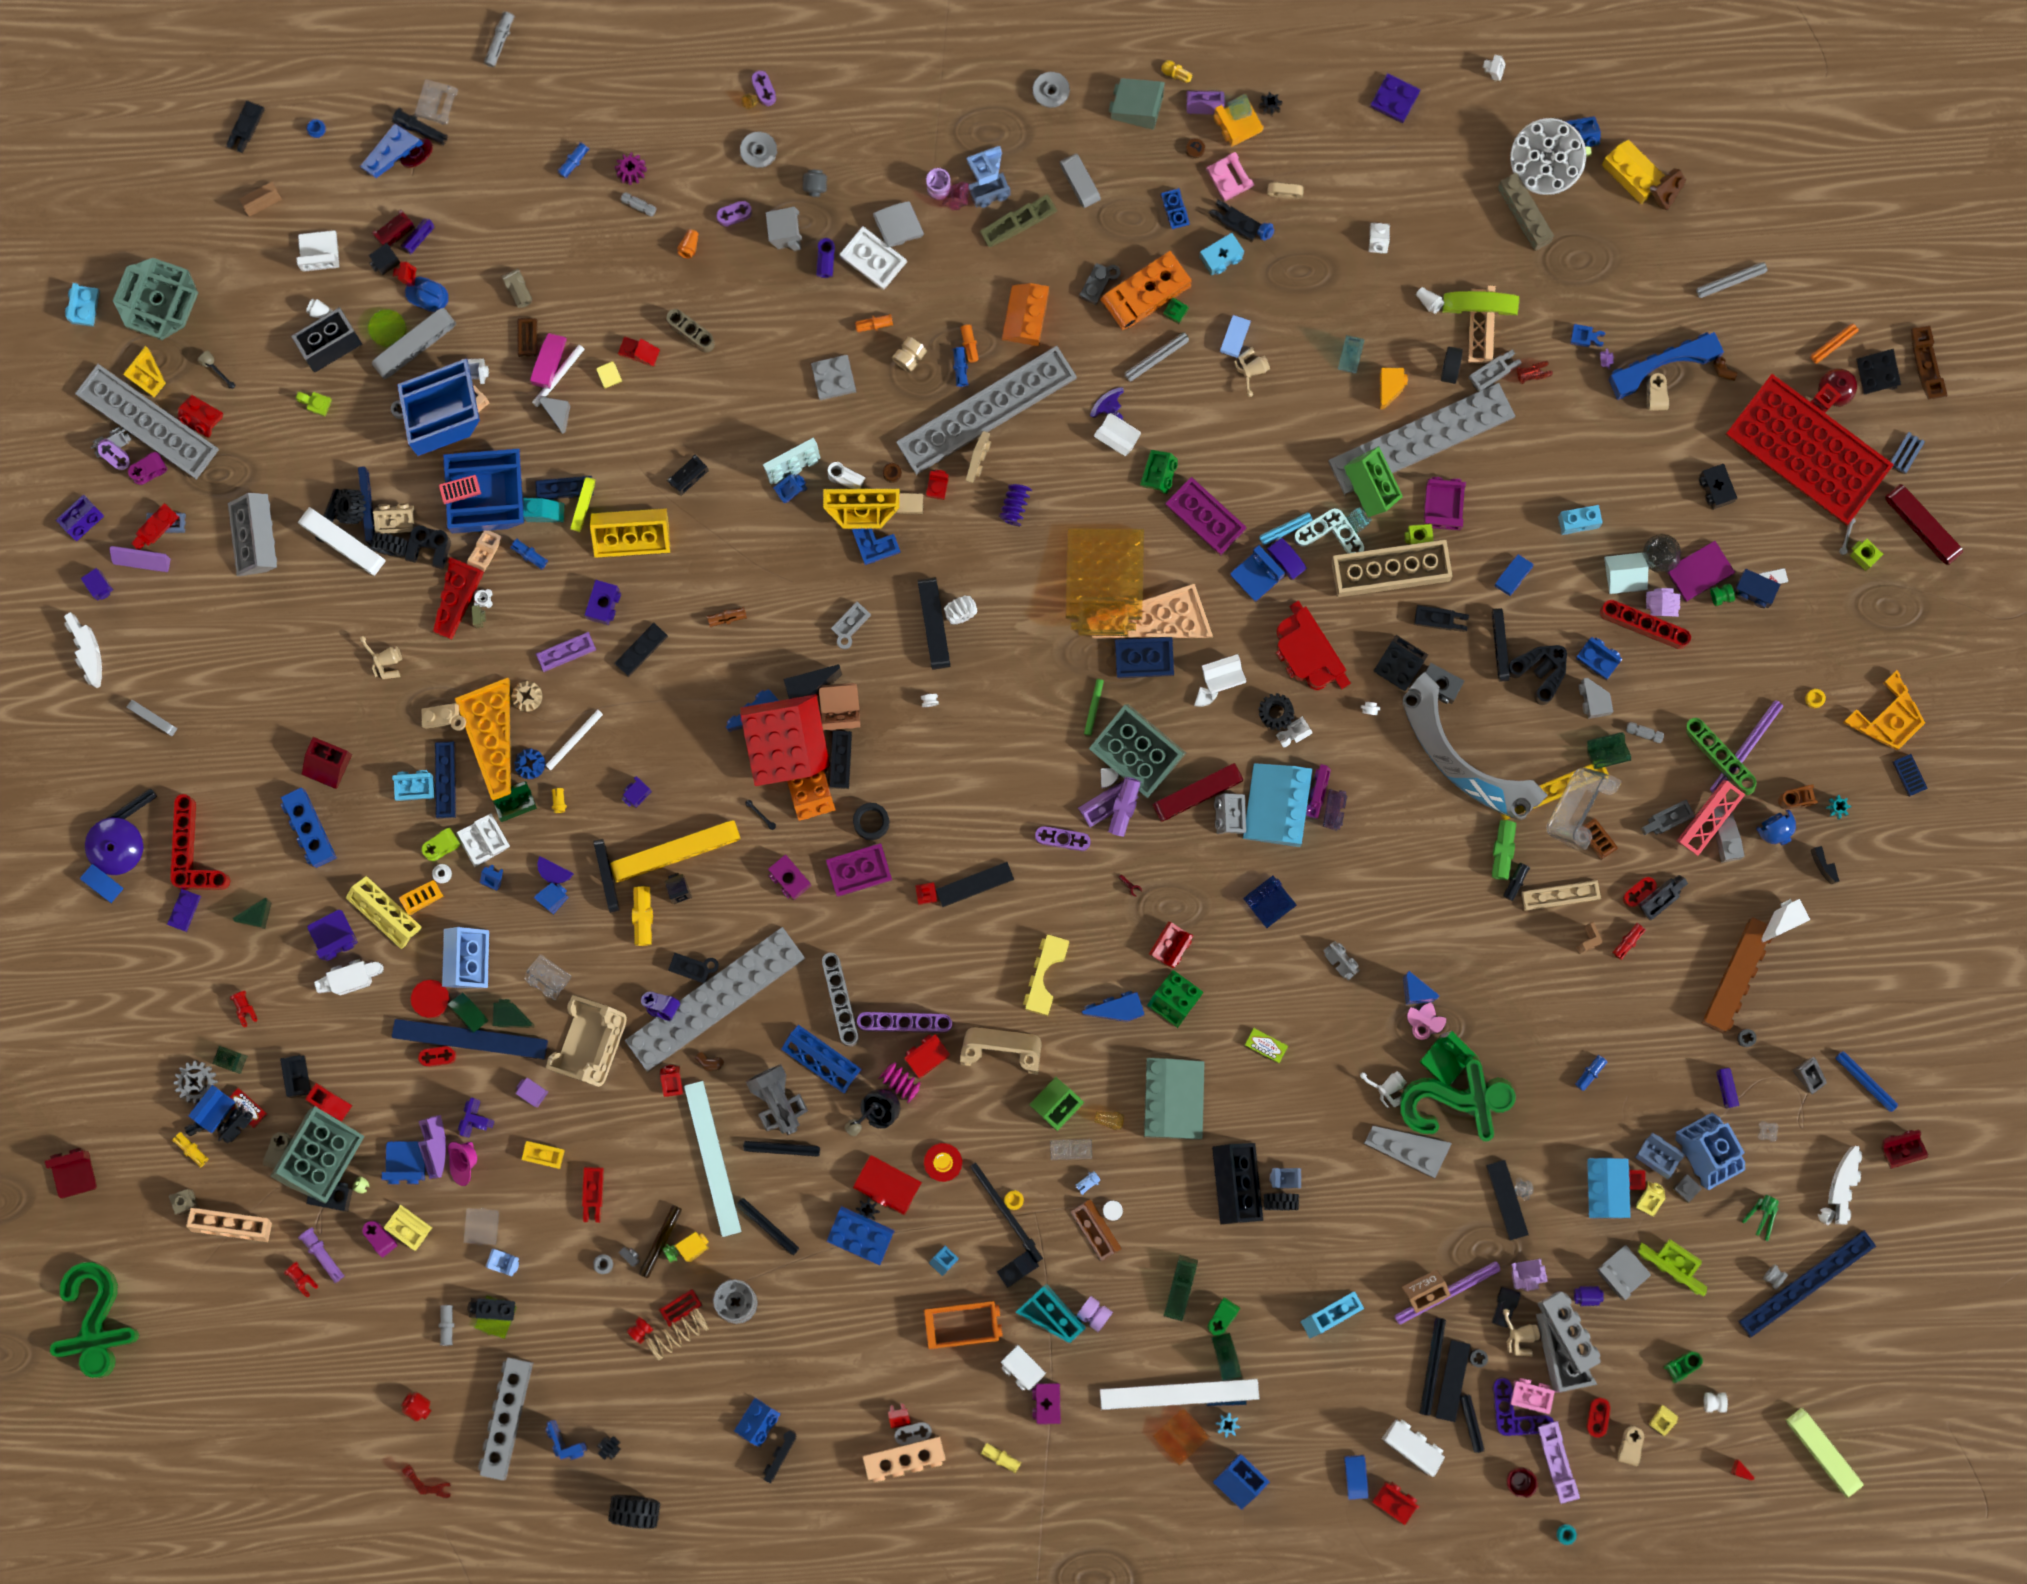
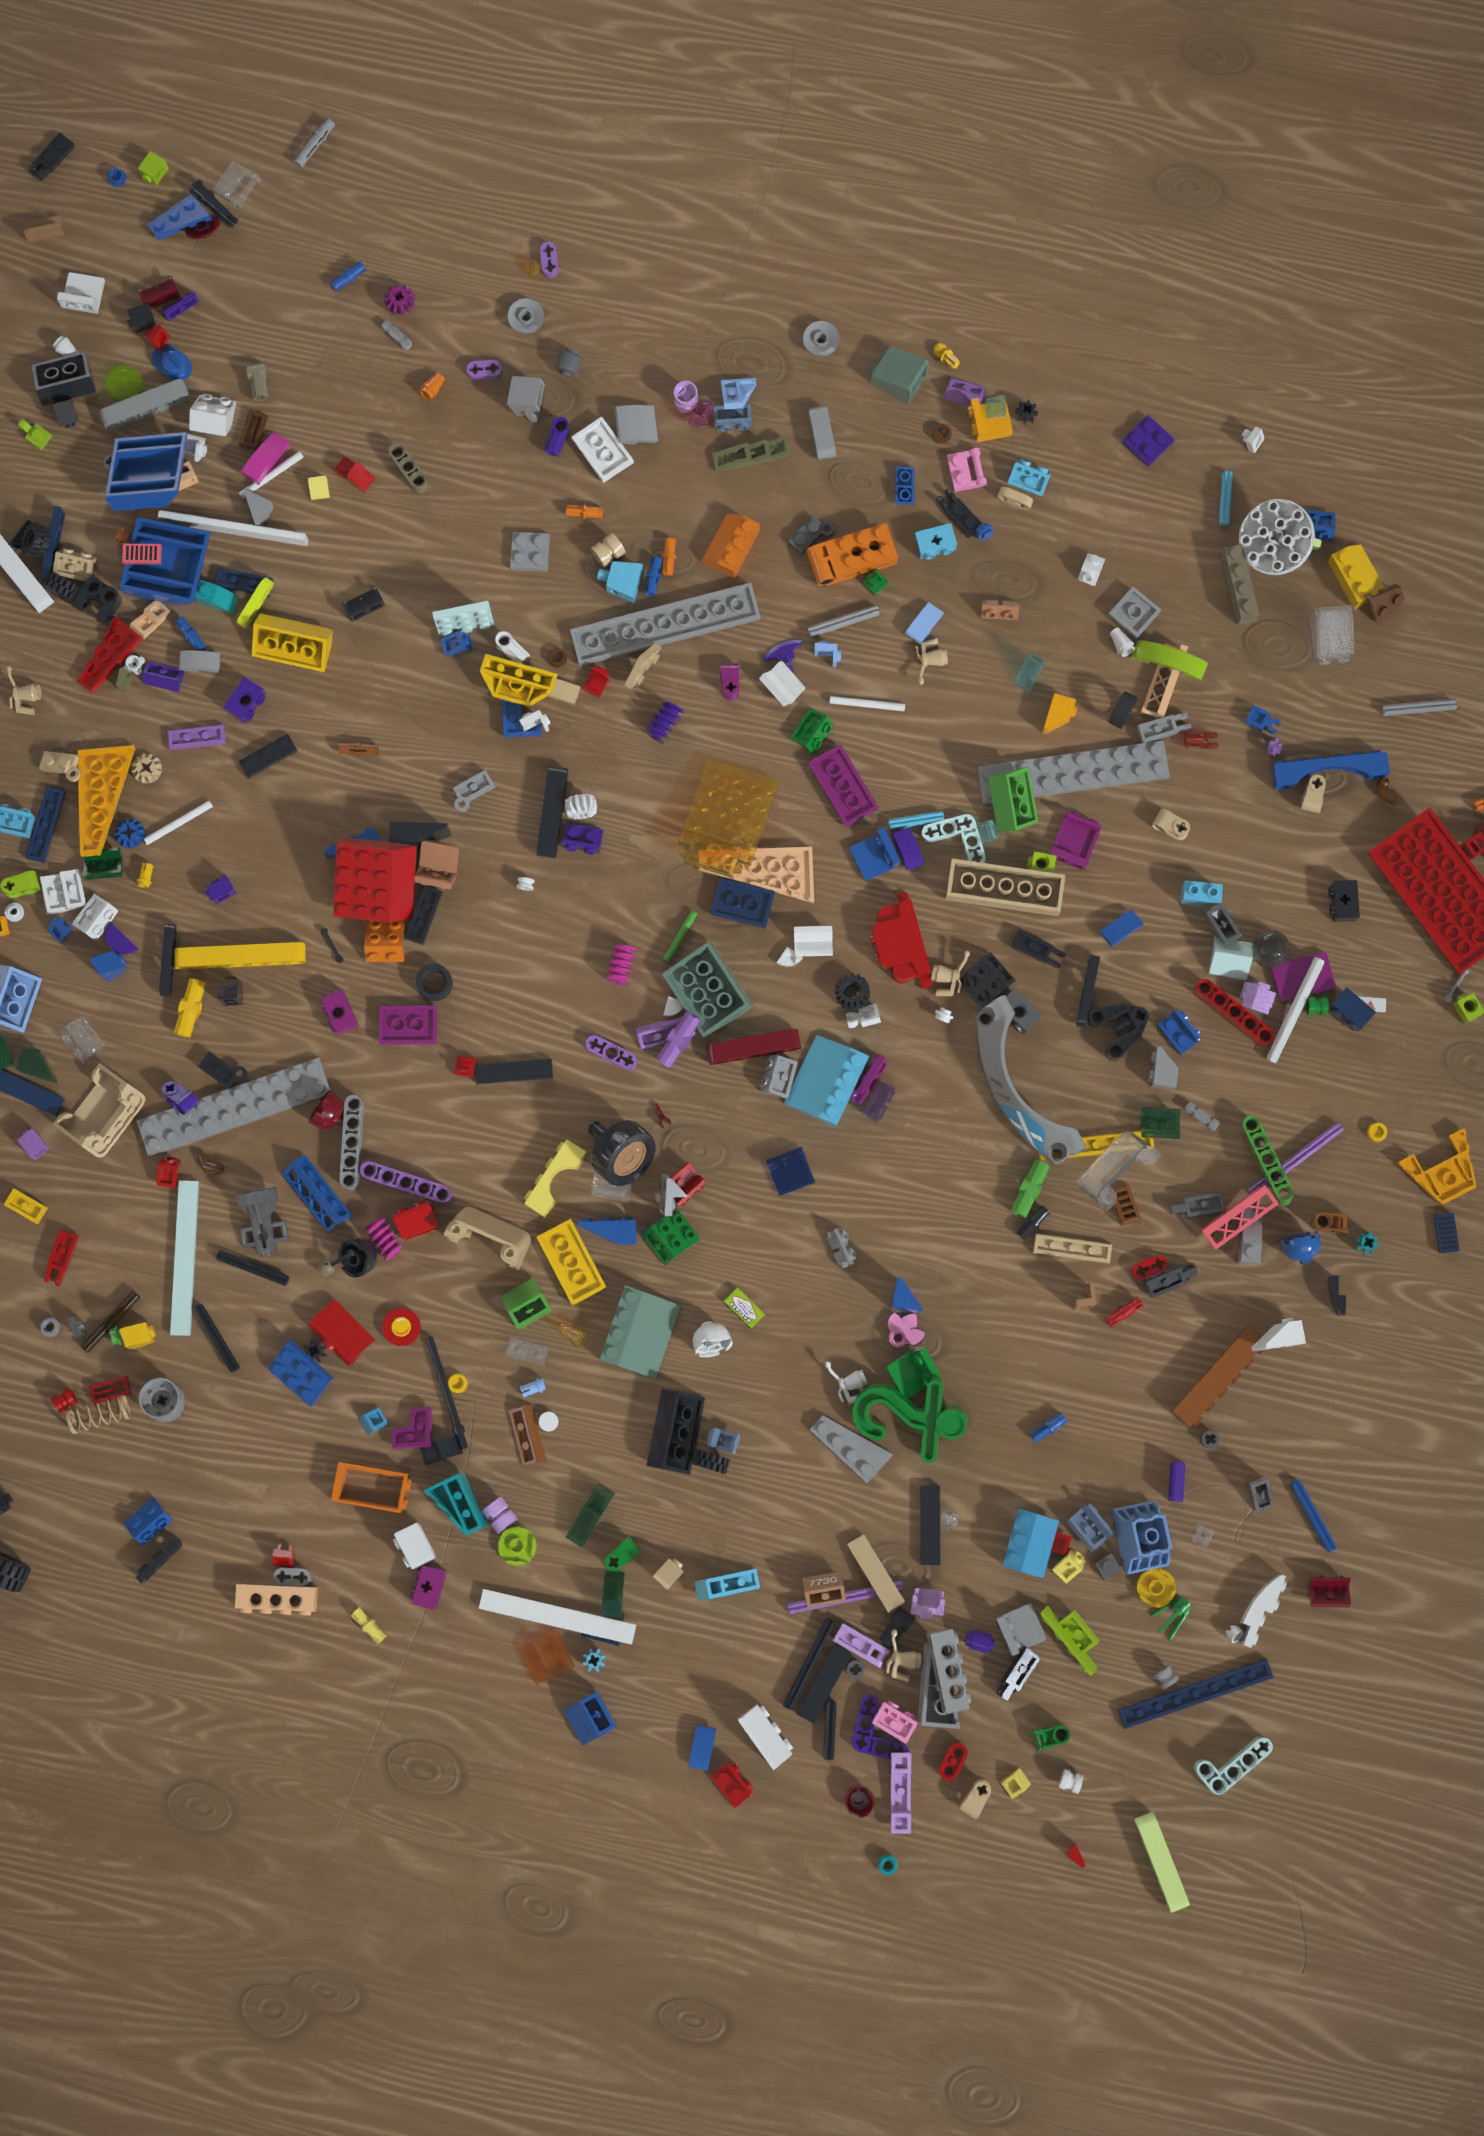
camera: 15 degrees right, 0 degrees up
(339, 373) = (66, 412): none -> black brick
(349, 109) = (152, 168): none -> lime brick
(432, 477) = (121, 536): none -> orange plate
(483, 333) = (212, 415): none -> white slope
(514, 602) = (162, 676): none -> dark purple slope
(522, 855) = (95, 917): none -> white bracket
(538, 438) = (233, 528): none -> white tile
(546, 576) = (199, 660): none -> light grey slope
(808, 976) = (327, 1112): none -> dark red cylinder
(887, 540) = (532, 719): none -> white bracket
(931, 378) = (622, 579): none -> medium azure torso
(970, 640) = (582, 838): none -> dark purple bracket
(992, 1259) = (418, 1434): none -> magenta plate
(1045, 751) = (620, 964): none -> dark pink piece
(1065, 444) = (730, 679): none -> magenta piece
(1087, 1051) = (571, 1262): none -> yellow plate
(1103, 968) = (603, 1189): none -> clear slope
(1104, 930) = (621, 1151): none -> black wheel
(1119, 1338) = (517, 1545): none -> lime tile
(1148, 389) = (824, 648): none -> light blue bracket
(1160, 955) = (669, 1190): none -> light grey slope
(1204, 430) = (867, 703): none -> white bar
(1244, 1084) = (710, 1339): none -> white cylinder
(1274, 1320) = (669, 1573): none -> tan slope
(1293, 166) = (1029, 477): none -> medium azure bracket
(1312, 301) = (992, 610): none -> nougat hinge
(1360, 669) = (946, 975): none -> tan piece
(1433, 267) = (1134, 612): none -> light grey plate
(1470, 1261) = (875, 1573): none -> tan tile
(1476, 1333) = (860, 1645): none -> lavender plate
(1486, 132) = (1225, 499): none -> medium azure axle
(1529, 461) = (1169, 824): none -> tan piece
(1609, 543) = (1222, 924): none -> flat silver slope
(1628, 234) = (1332, 634): none -> clear slope
(1634, 1315) = (1018, 1672): none -> hinge
(1703, 604) = (1295, 1010): none -> white axle
(1739, 1194) = (1156, 1587): none -> yellow tile
(1865, 1336) = (1236, 1761): none -> light aqua beam

